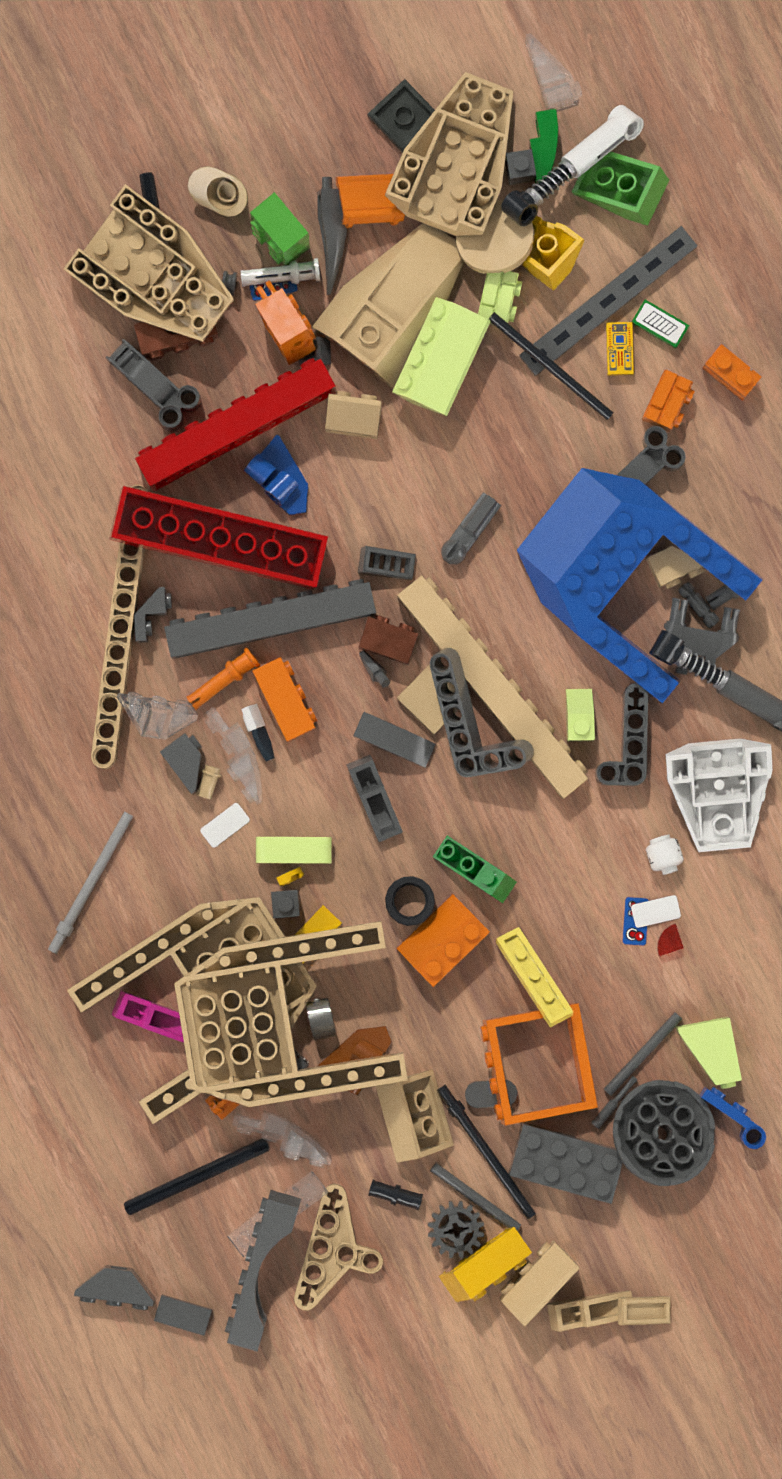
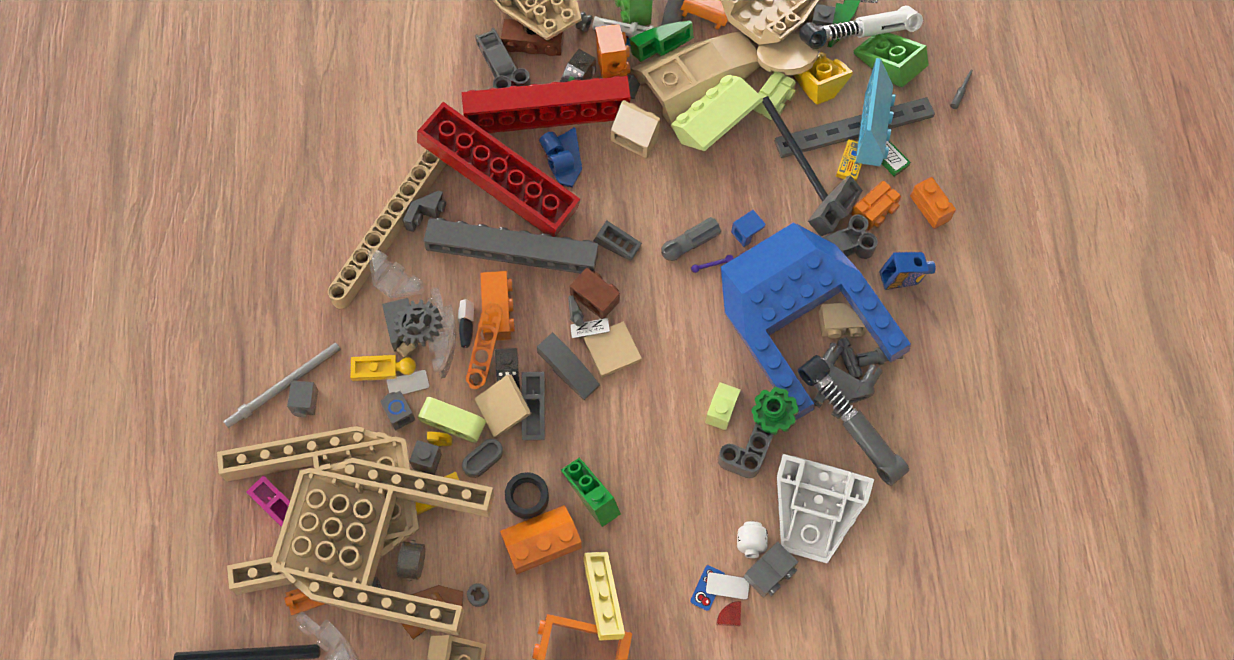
camera: 25 degrees right, 20 degrees down
(122, 891) = (302, 398): none -> dark grey brick
(189, 821) = (380, 367): none -> yellow plate
(208, 771) = (418, 323): none -> dark grey gear
(229, 862) = (397, 409): none -> dark grey brick
(233, 671) = (467, 272): orange pin -> none
(251, 362) = (580, 67): none -> clear smoke slope
(293, 755) = (481, 344): none -> orange beam
(332, 775) = (507, 364): none -> clear smoke slope
(336, 280) = (661, 39): none -> green slope
(343, 814) = (502, 406): none -> tan tile
(344, 877) = (482, 458): none -> dark grey tile
(400, 682) = (590, 328): none -> white sticker
(408, 1017) = (471, 598): none -> dark grey bush
(467, 723) = (631, 372): dark grey beam -> none
(492, 687) = (663, 360): tan brick -> none
(521, 534) = (695, 268): none -> dark purple hinge
(531, 489) = (746, 227): none -> blue panel
(622, 421) = (835, 206): none -> dark grey slope
(631, 292) = (876, 117): none -> medium azure slope
(640, 722) = (779, 420): none -> green plant
(695, 879) = (771, 569): none -> dark grey brick
(719, 199) = (960, 92): none -> dark grey piece
(728, 474) = (905, 269): none -> blue torso

